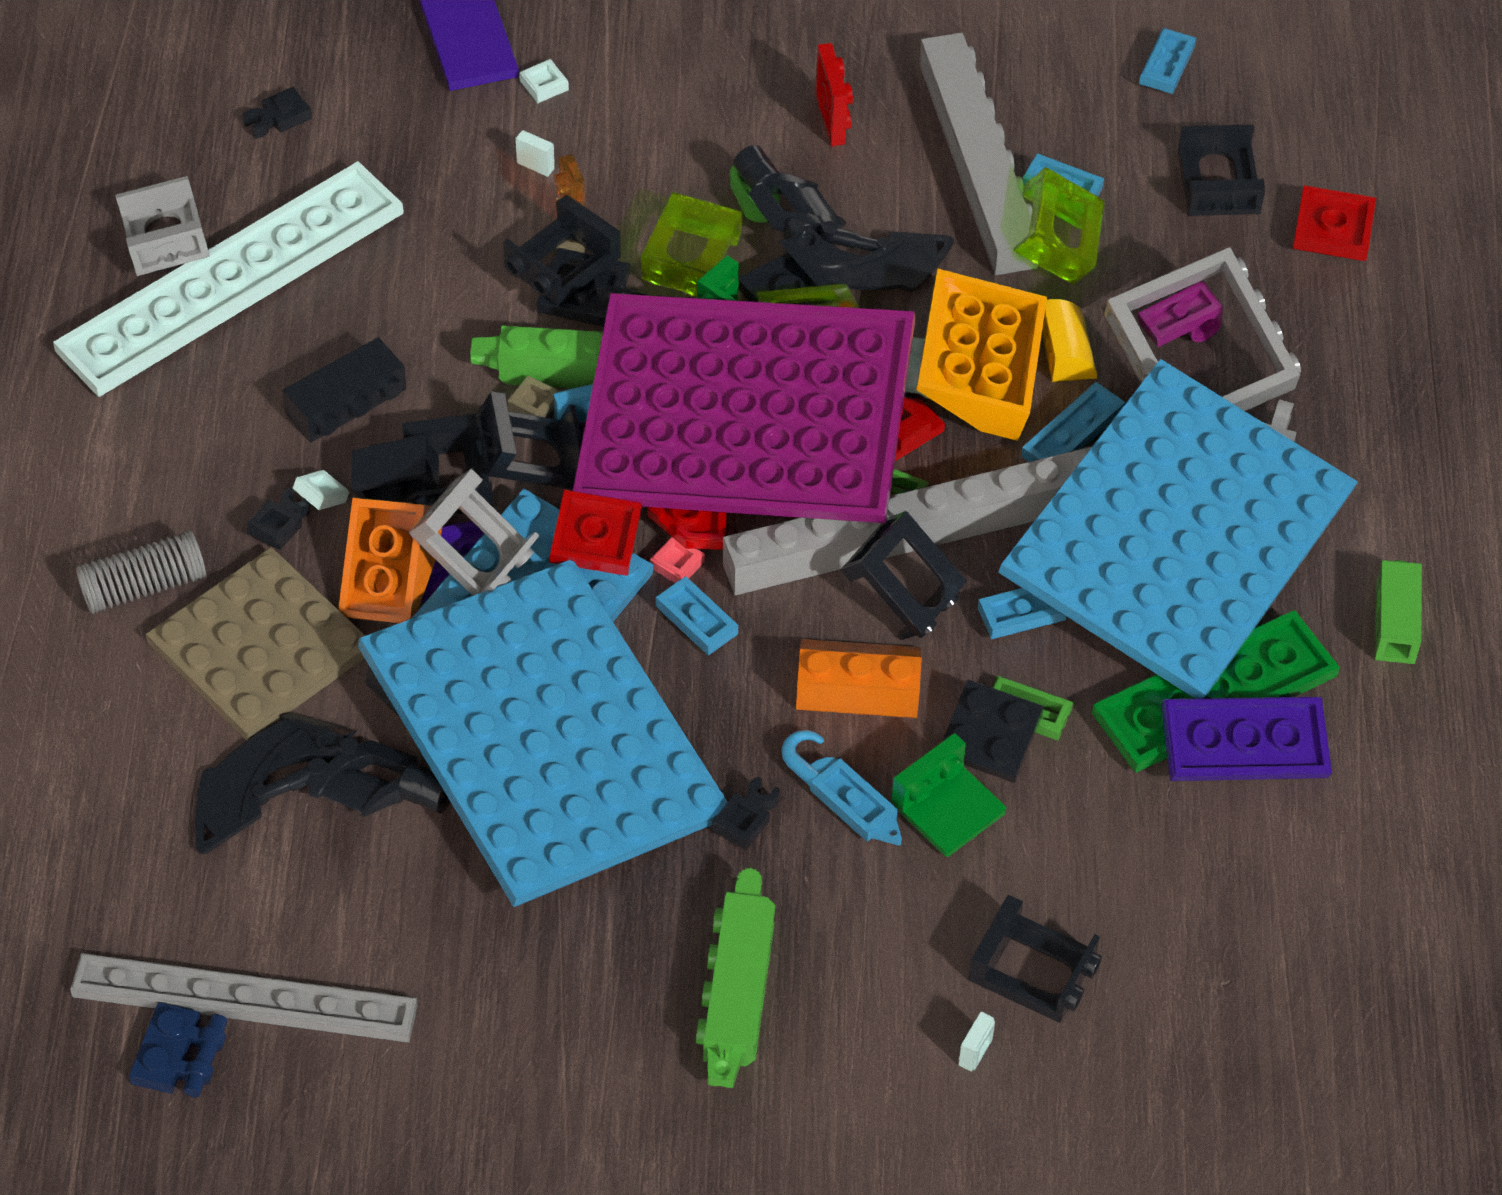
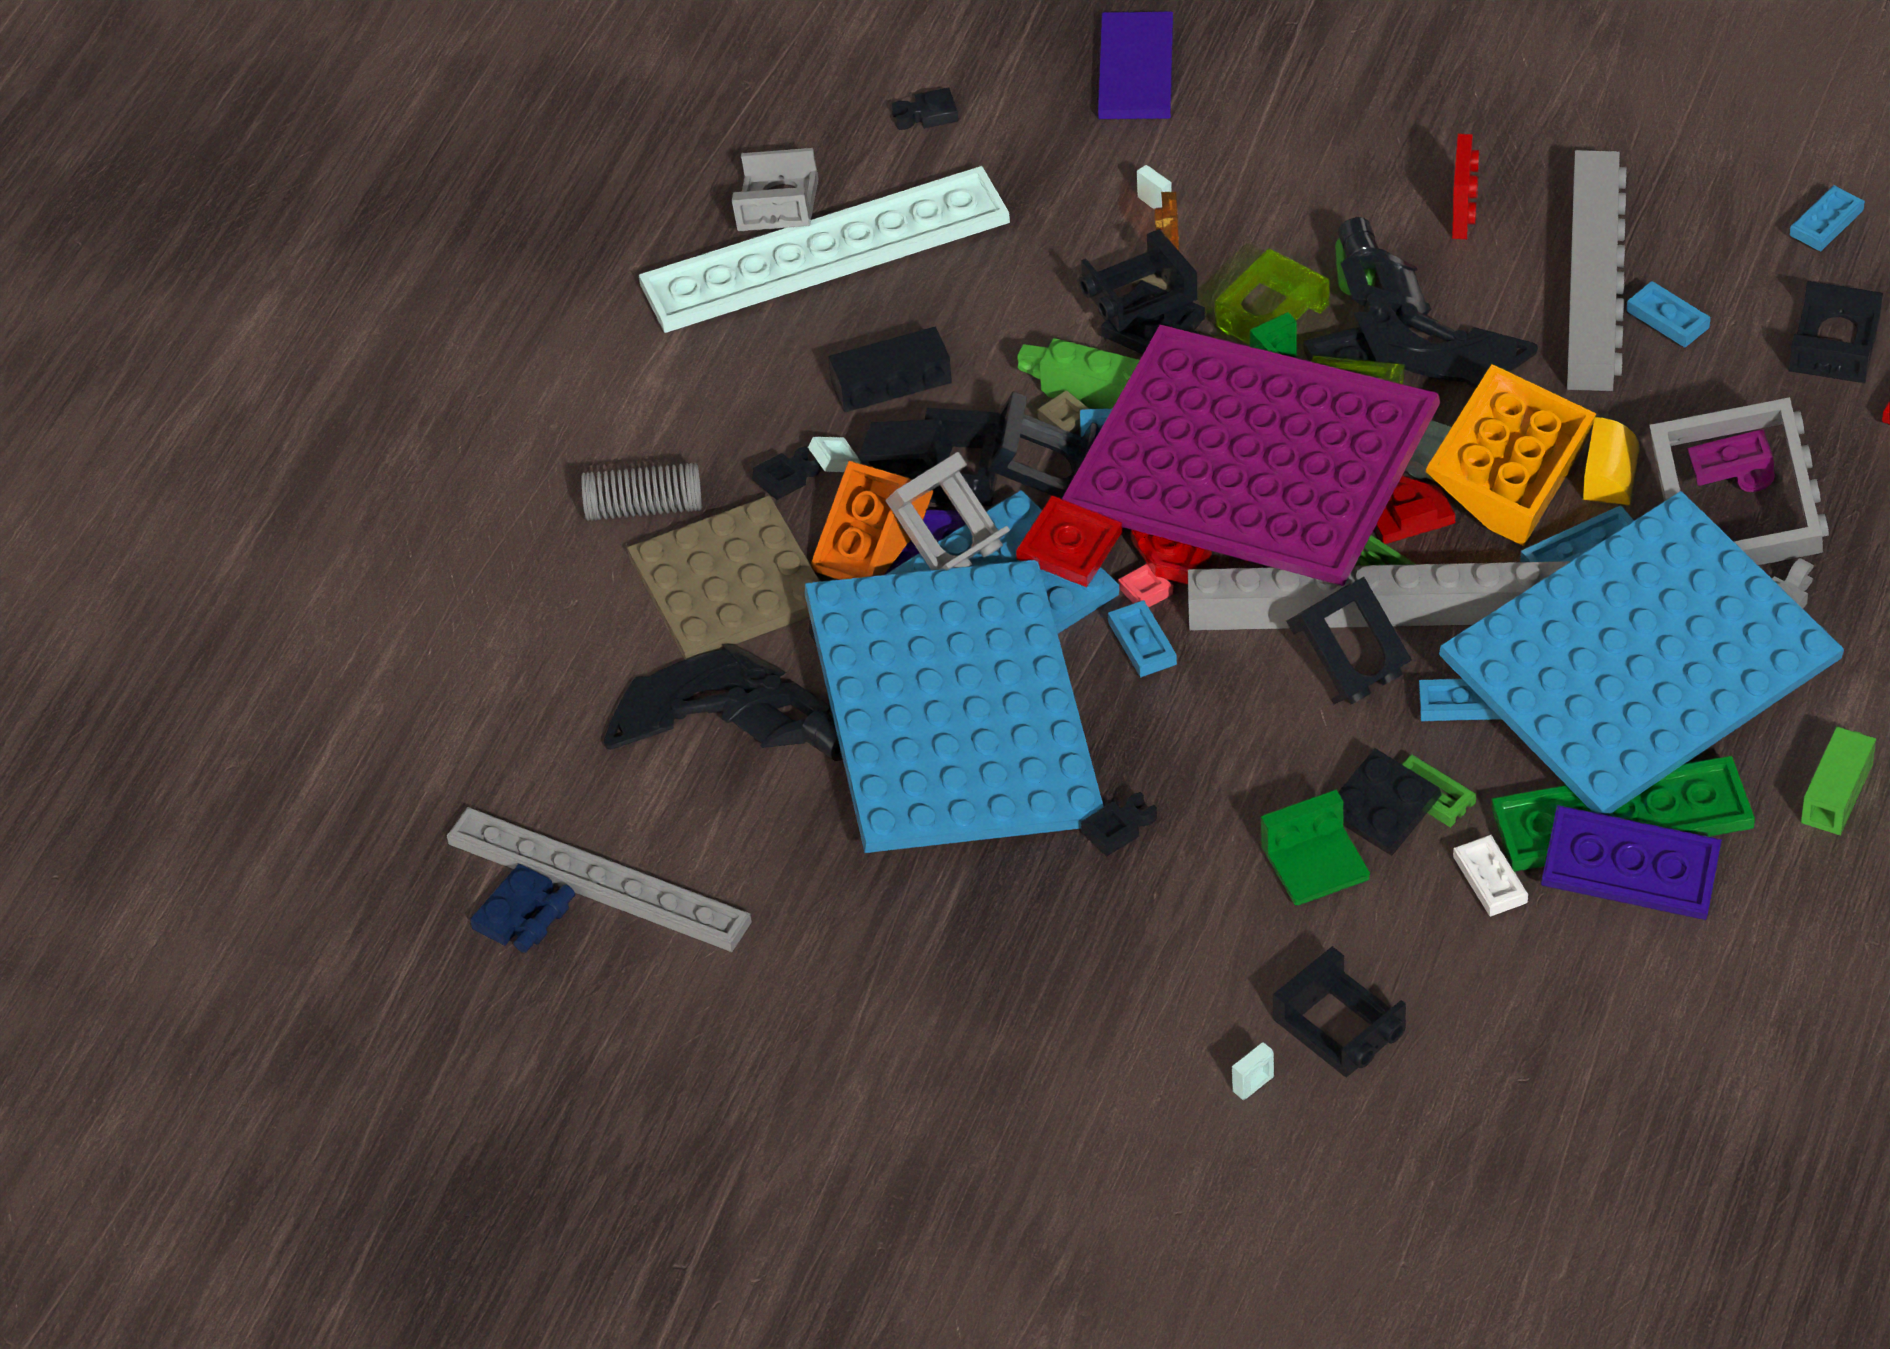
camera: 25 degrees right, 5 degrees down
(544, 81) = (1192, 126): light aqua tile -> none
(738, 980) = (1050, 965): bright green hinge -> none
(844, 791) = (1218, 824): dark azure plate -> none
(859, 678) = (1273, 727): orange slope -> none
(1061, 197) = (1660, 331): clear neon green panel -> none
(1119, 782) = (1490, 875): none -> white plate

